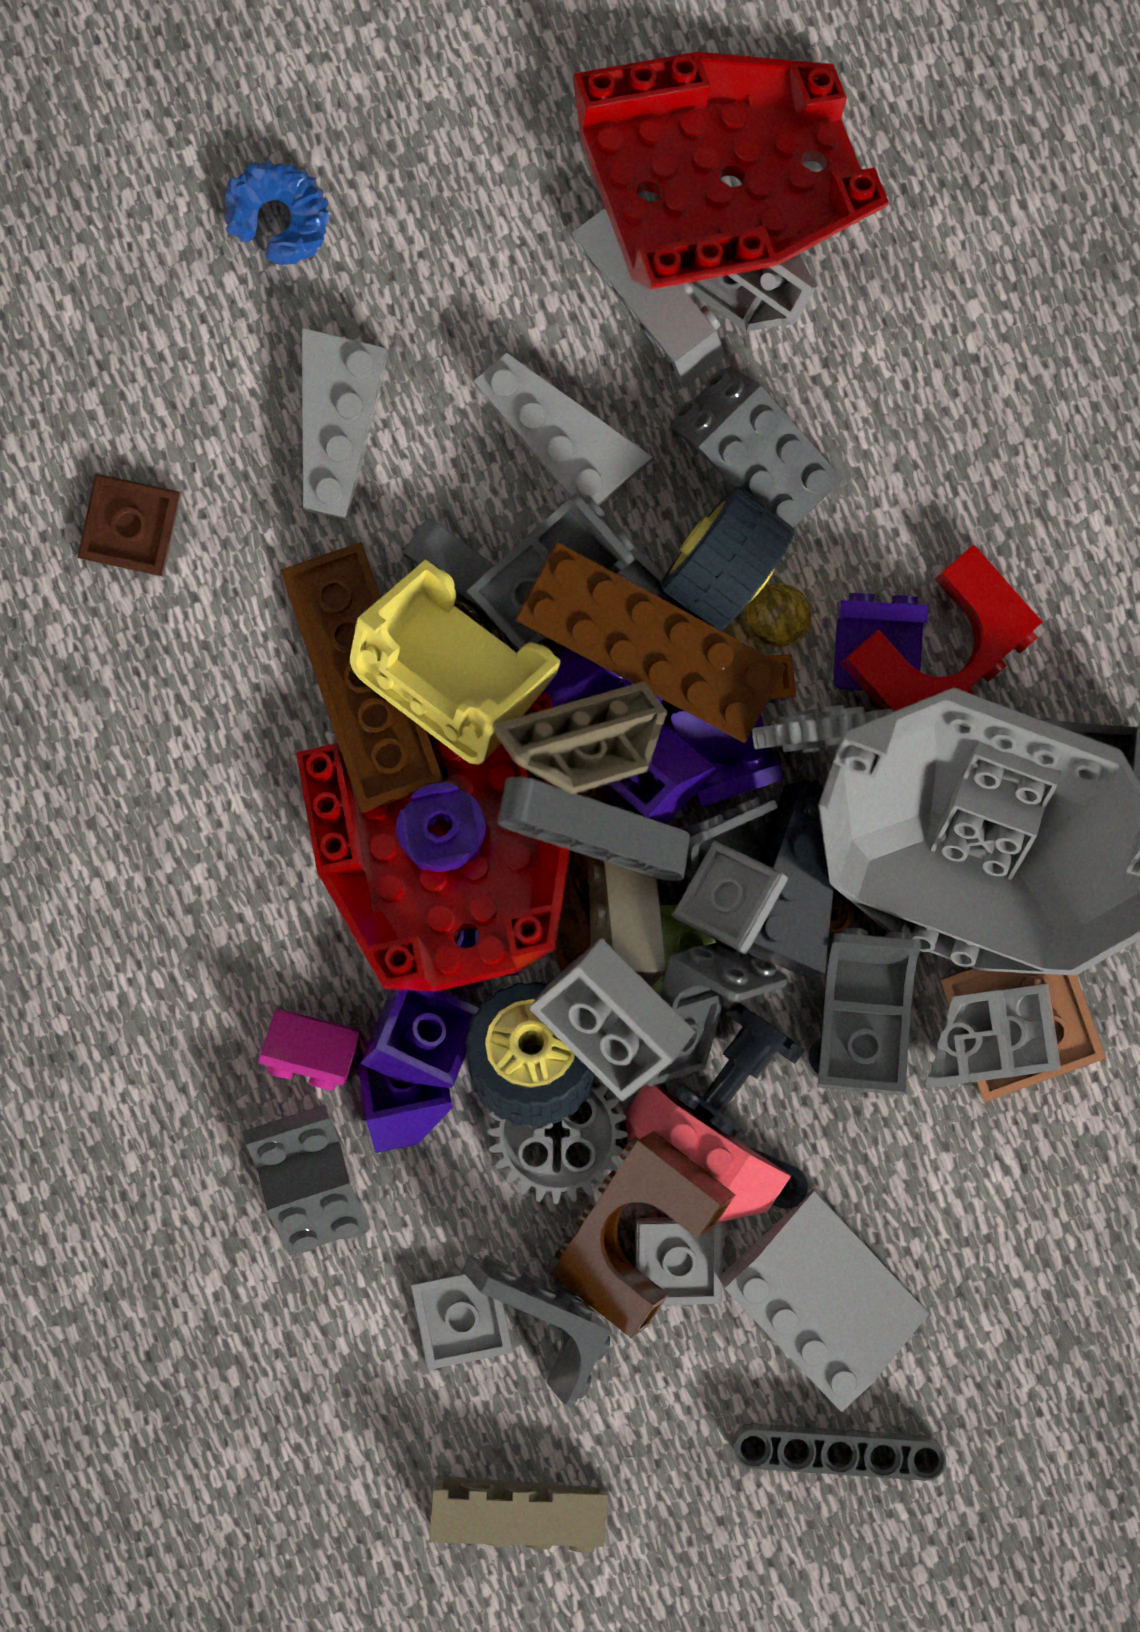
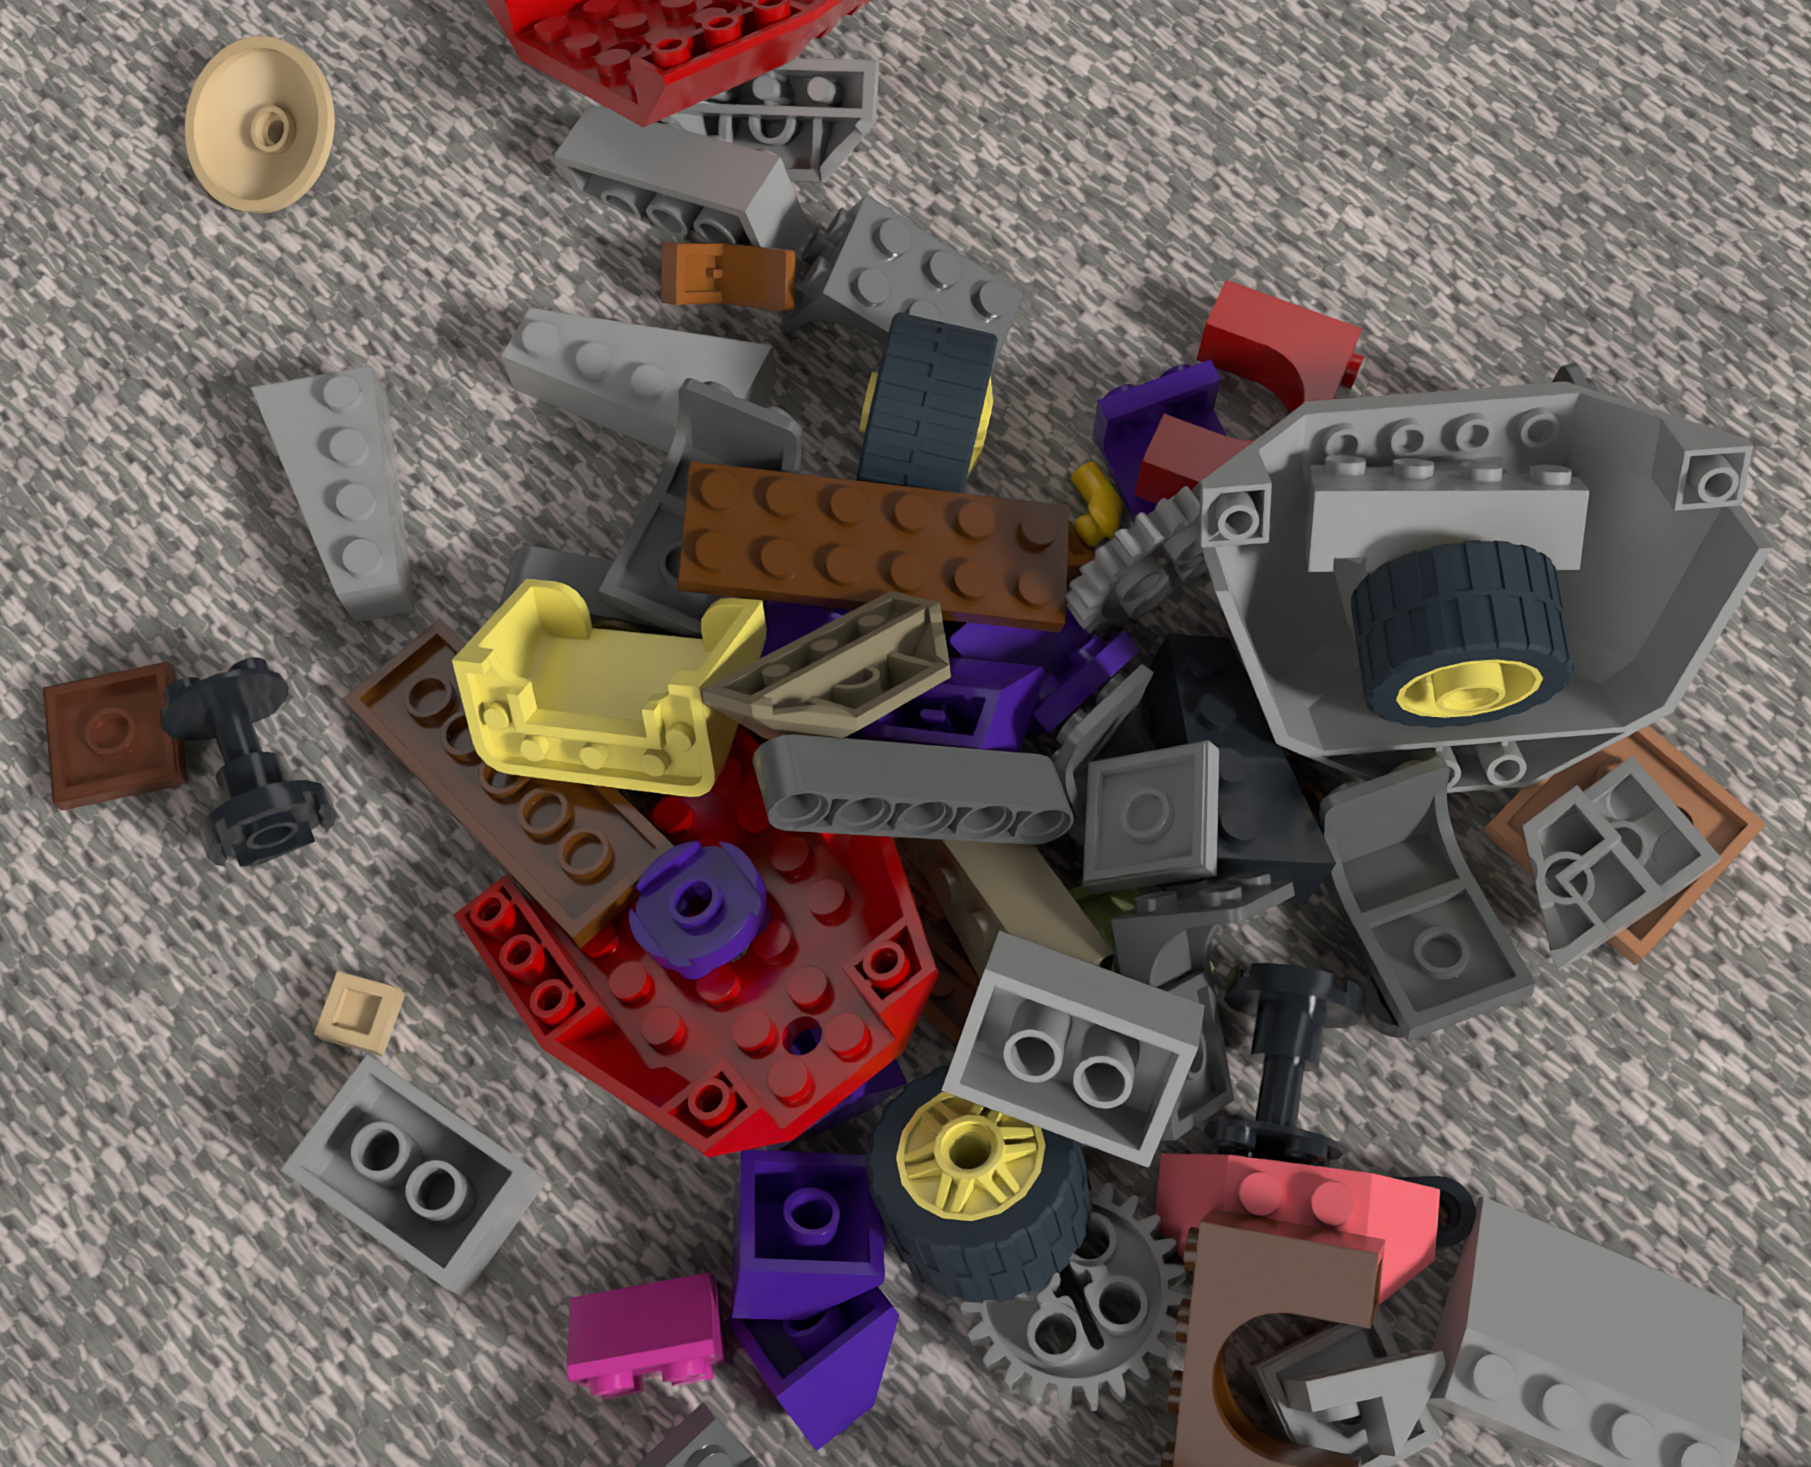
camera: 25 degrees left, 20 degrees down
(205, 611) = (261, 808): none -> black piece
(213, 897) = (414, 1176): none -> light grey brick
(216, 779) = (359, 1013): none -> tan plate
(285, 184) = (180, 259): blue piece -> none
(360, 115) = (239, 118): none -> tan dish
(648, 372) = (728, 275): none -> dark orange bracket
(700, 1265) = (1388, 1391): none -> light grey slope
(788, 626) = (1024, 452): clear yellow hair -> none
(817, 660) = (1103, 505): none -> yellow arm
(963, 881) = (1461, 634): none -> black wheel
(989, 803) = (1393, 511): none -> light grey wedge

